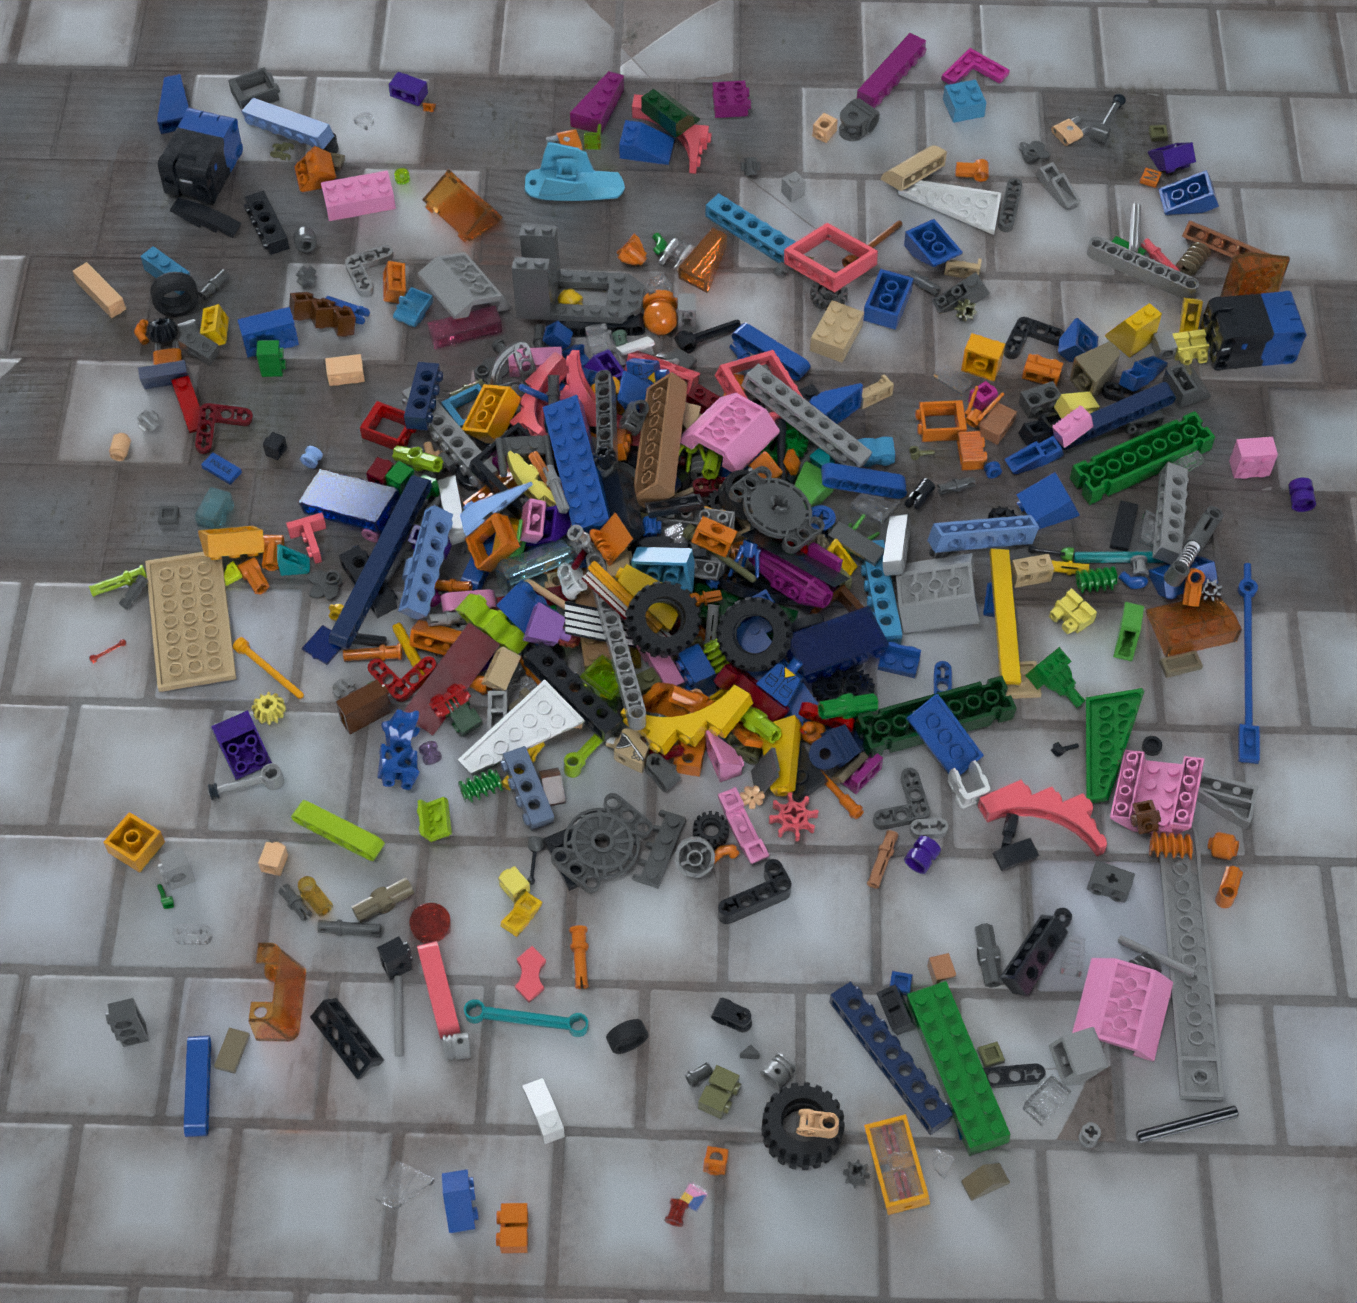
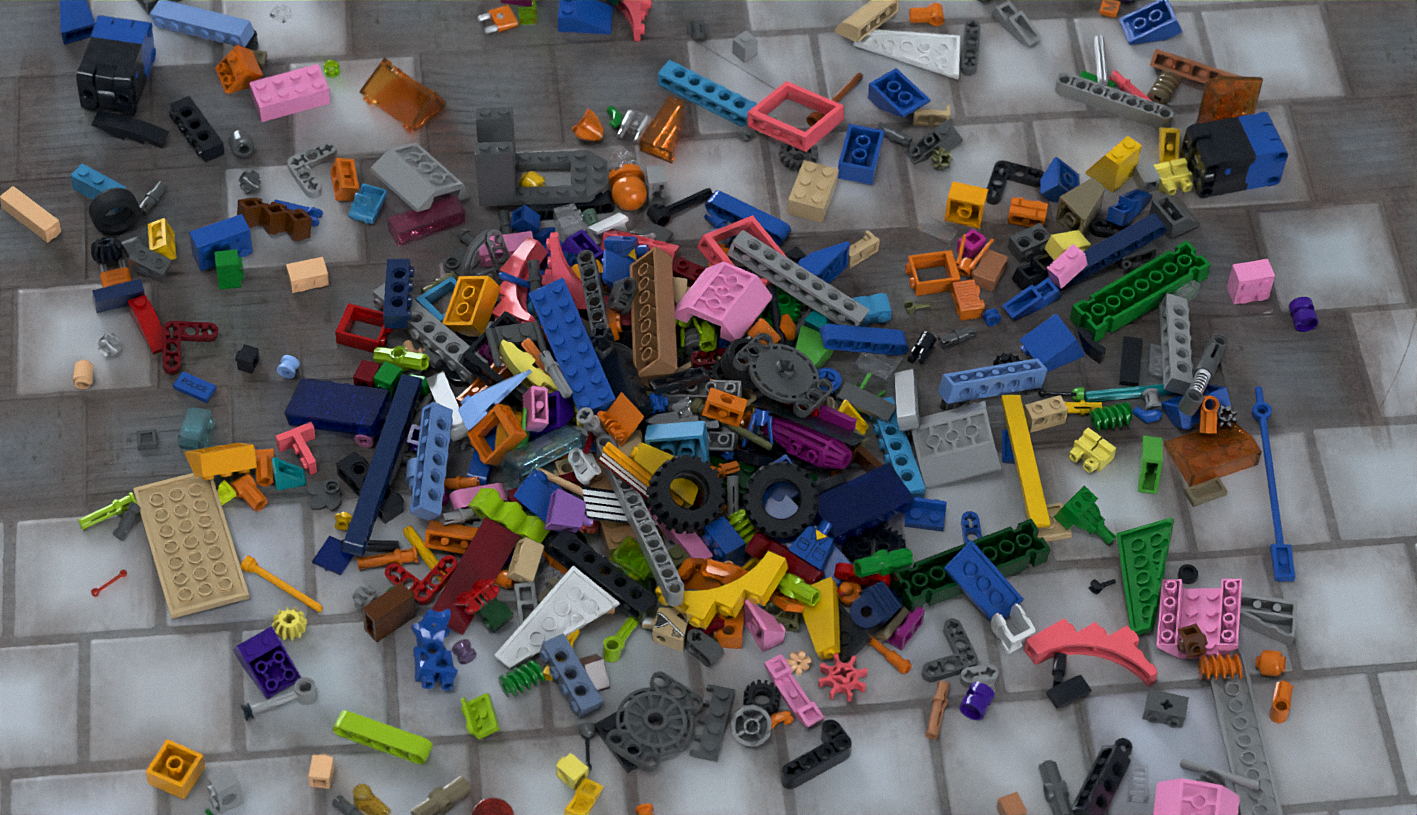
camera: 10 degrees left, 5 degrees down
(141, 330) = (82, 253): orange arm -> none
(285, 146) = (198, 48): olive piece -> none
(570, 177) = (509, 54): medium azure piece -> none
(766, 770) = (809, 634): dark grey window -> none
(1086, 509) = (1091, 348): none -> black slope

